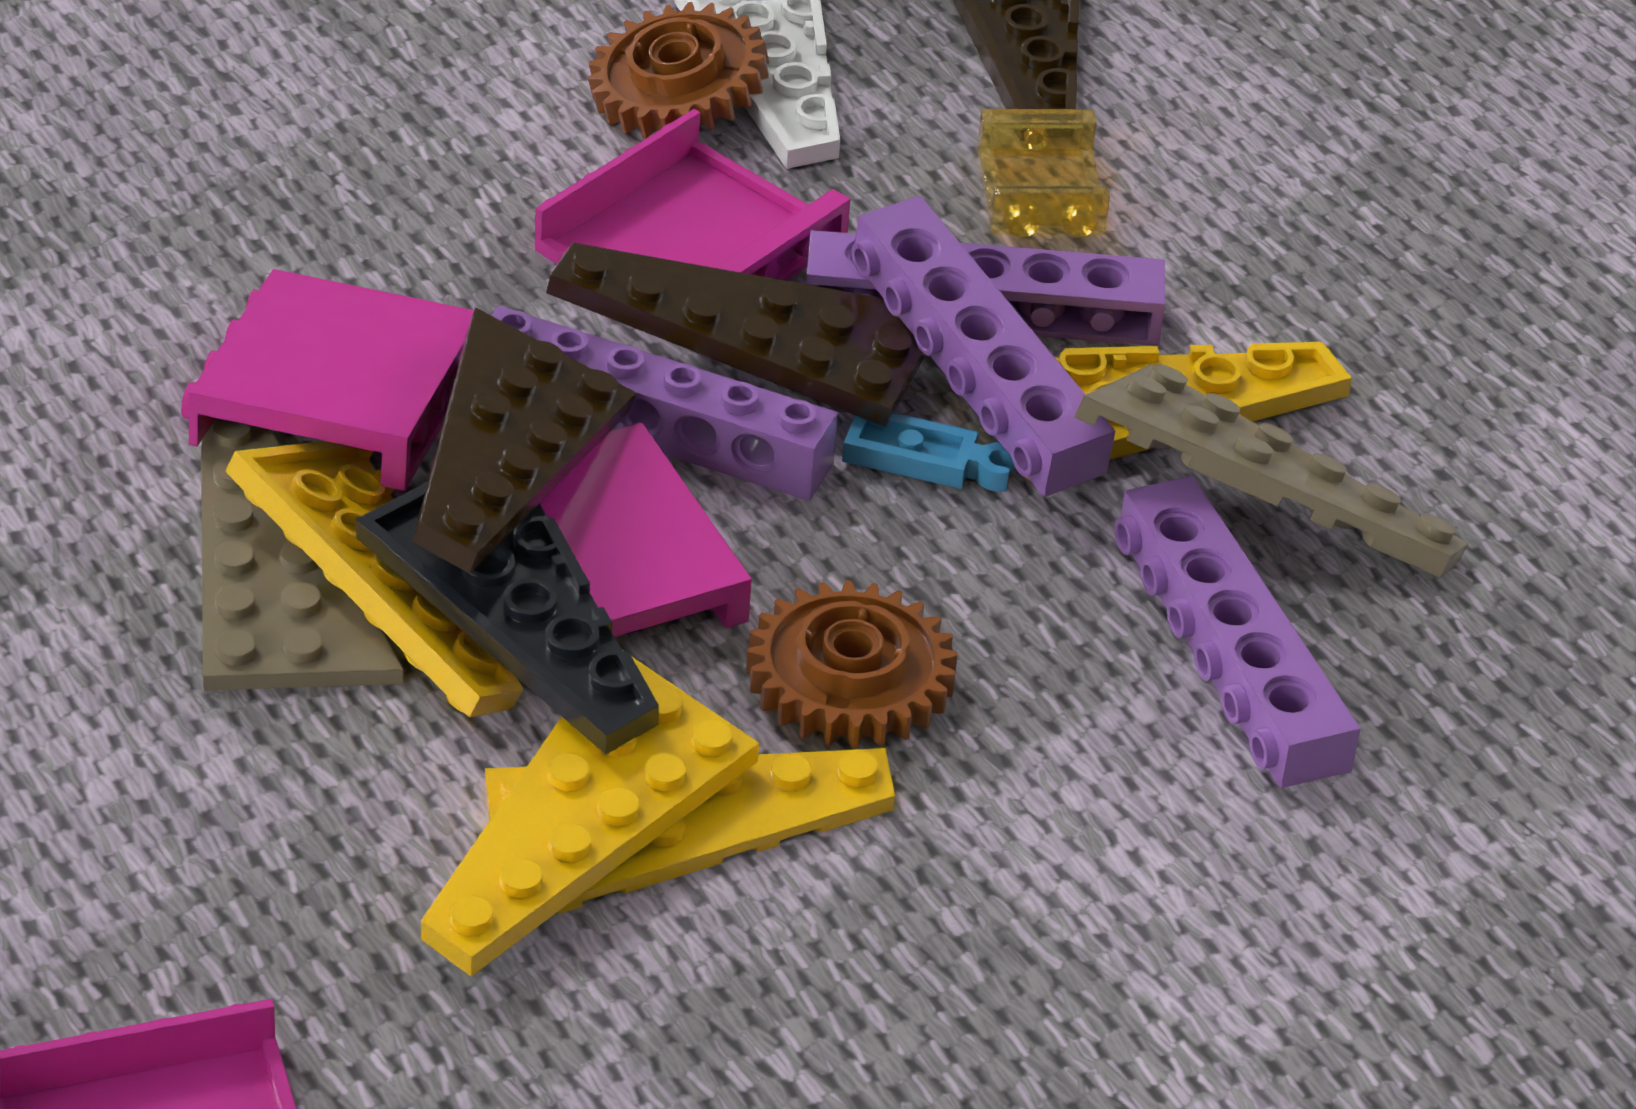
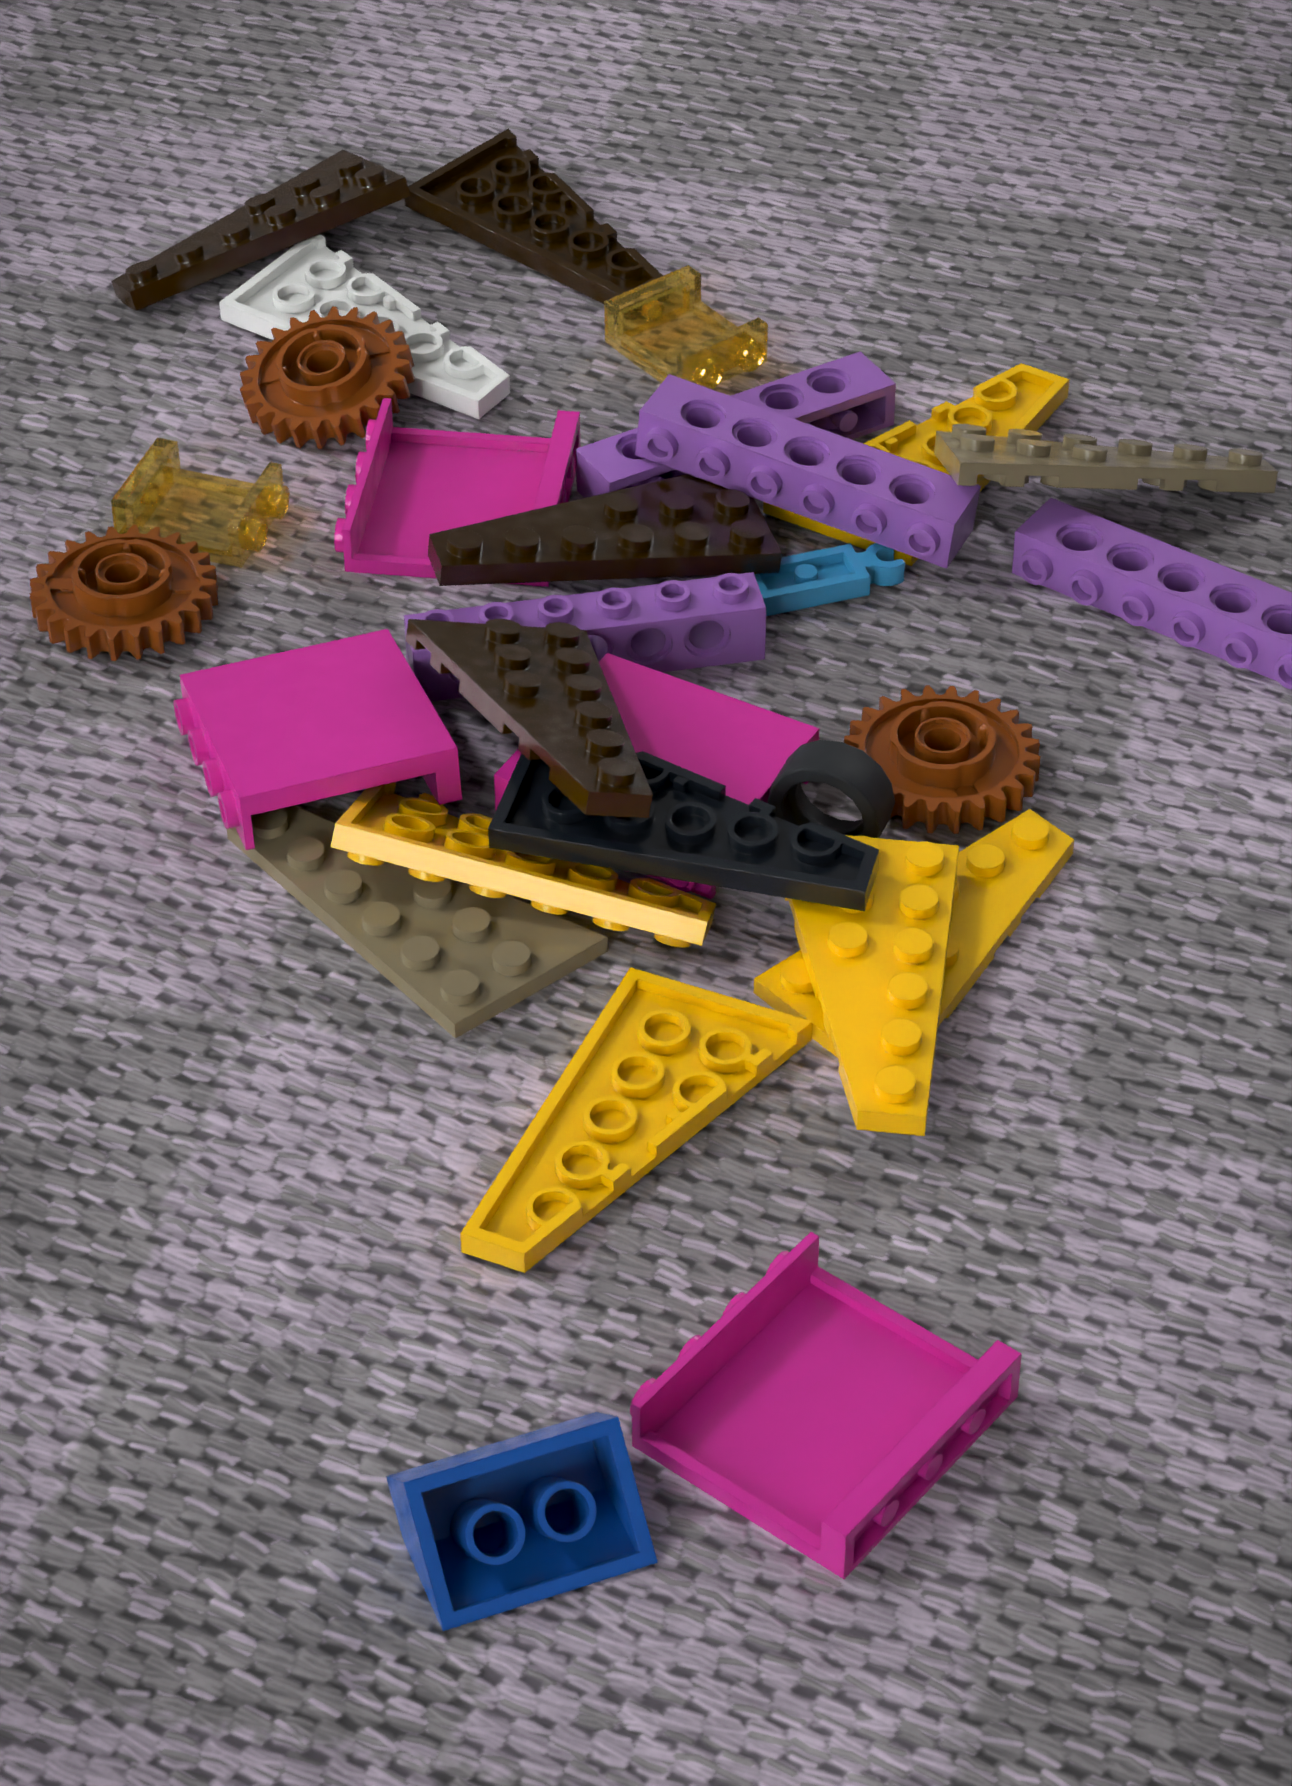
camera: 30 degrees left, 0 degrees up
(299, 808) = (632, 1095): none -> yellow wing
(322, 180) = (124, 592): none -> dark orange gear
(456, 135) = (217, 512): none -> clear yellow panel
(695, 643) = (841, 768): none -> black tyre

